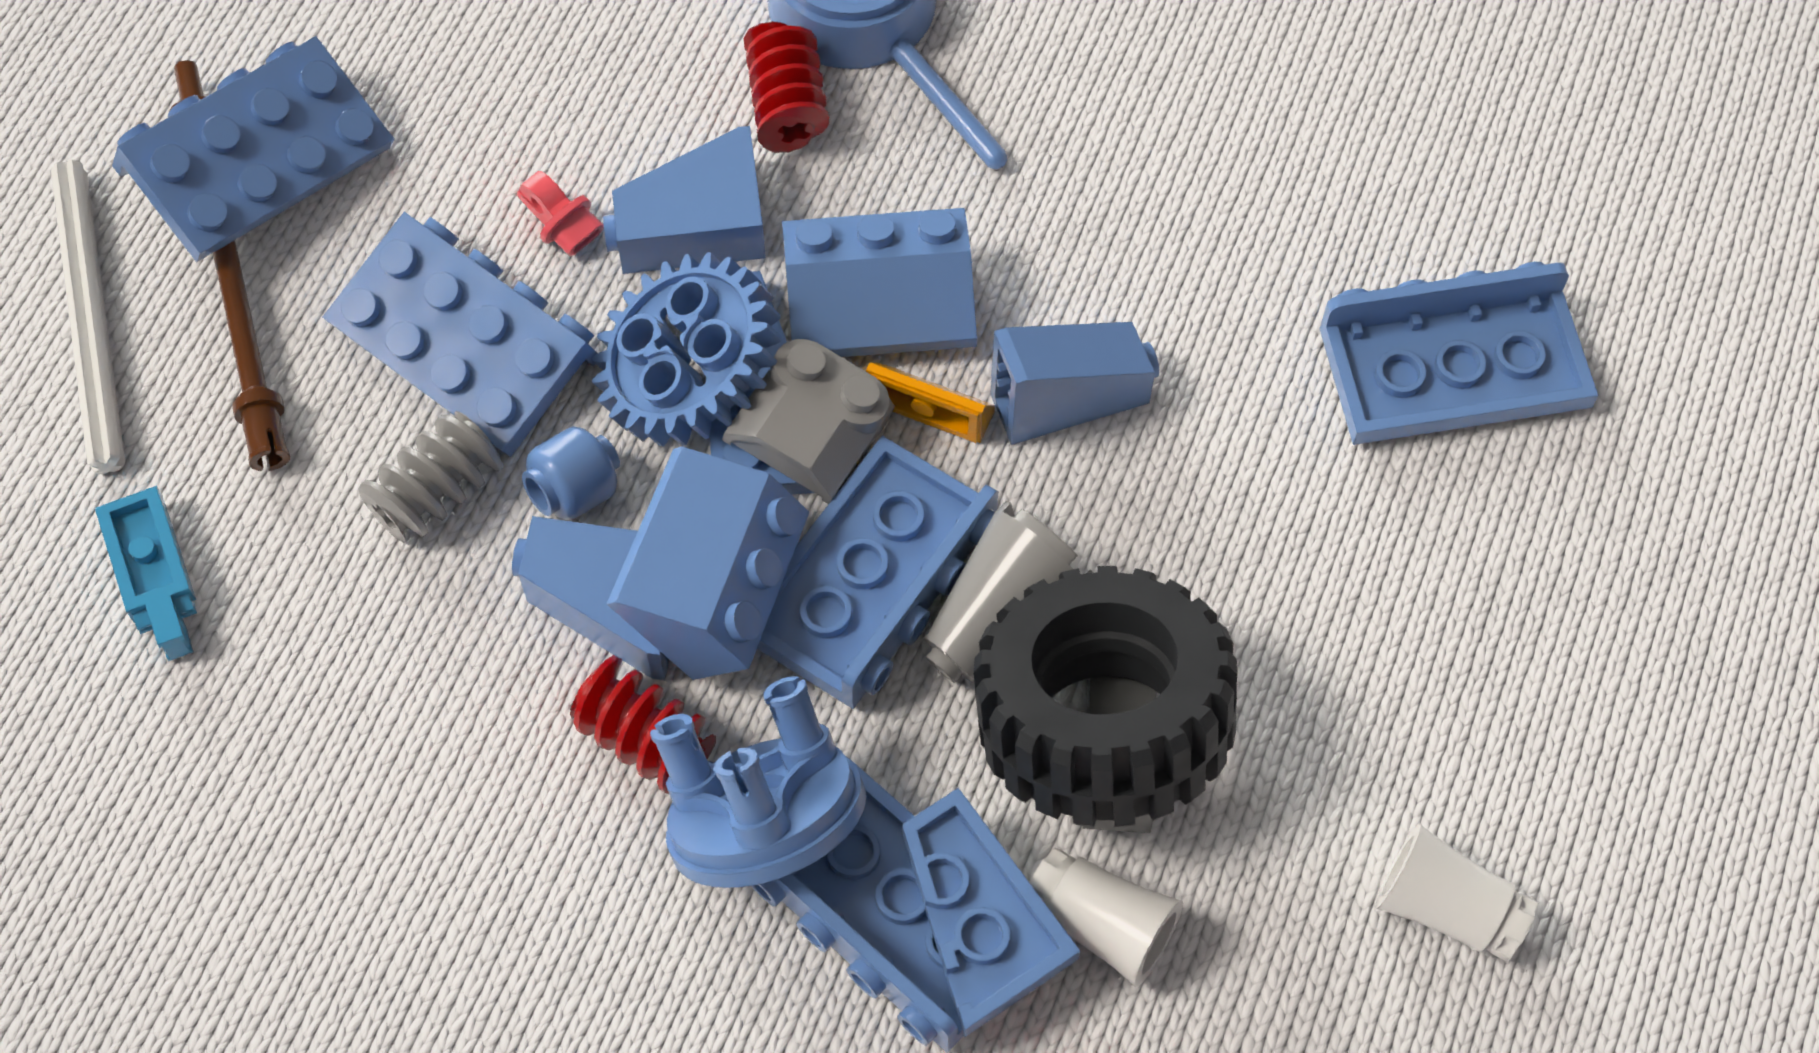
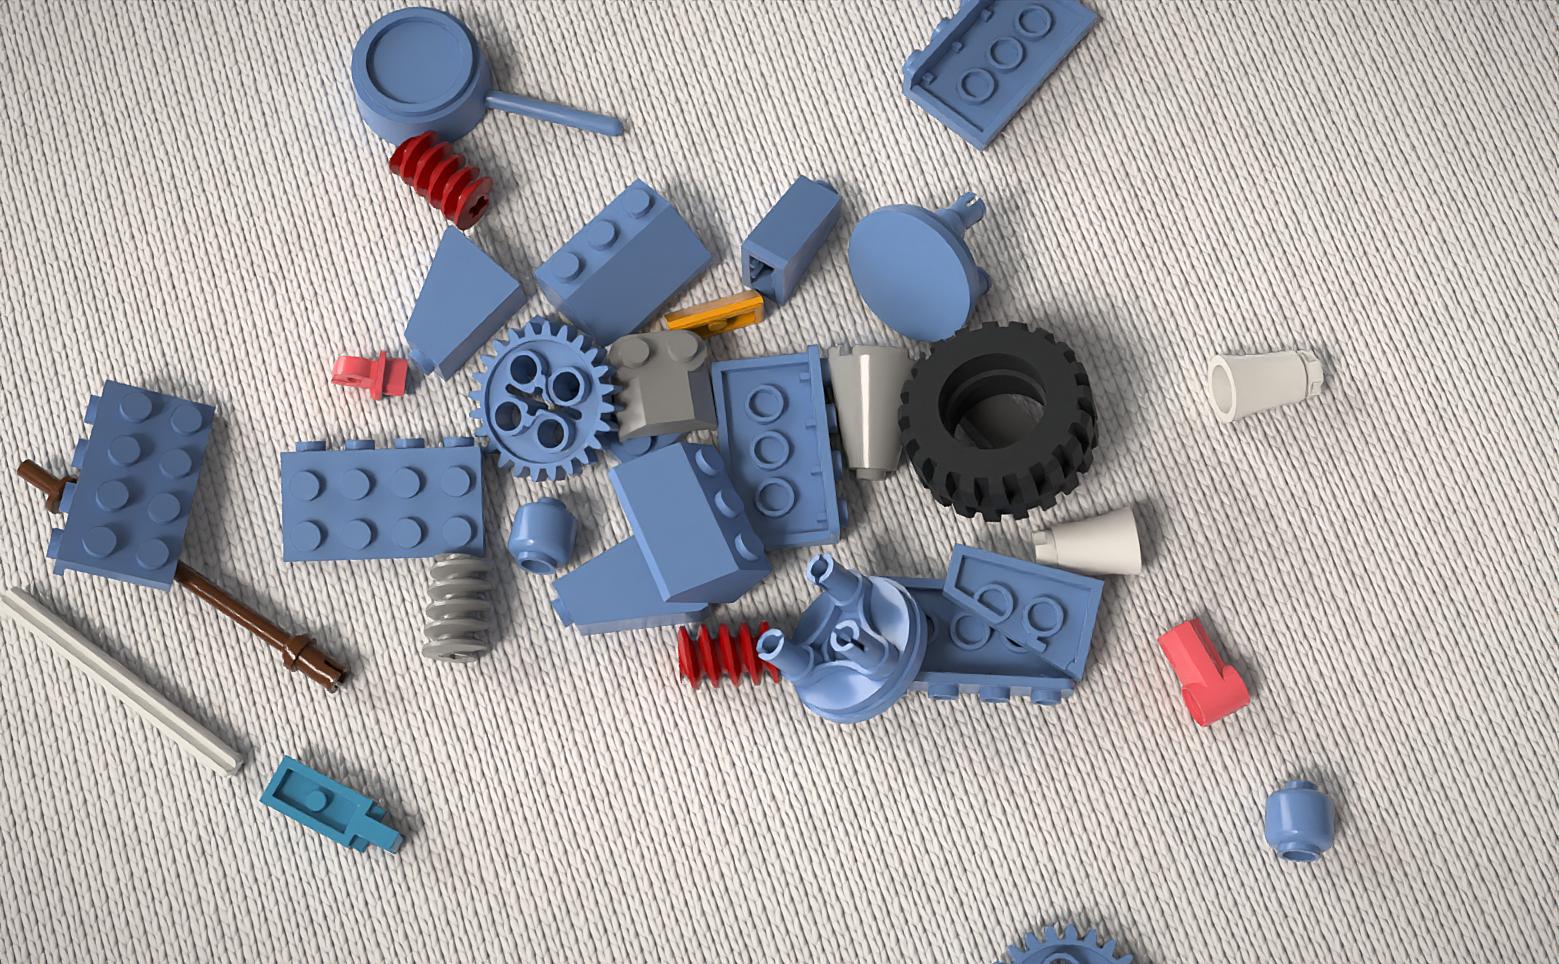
camera: 40 degrees left, 10 degrees up
(1165, 489) = (918, 267): none -> medium blue piece

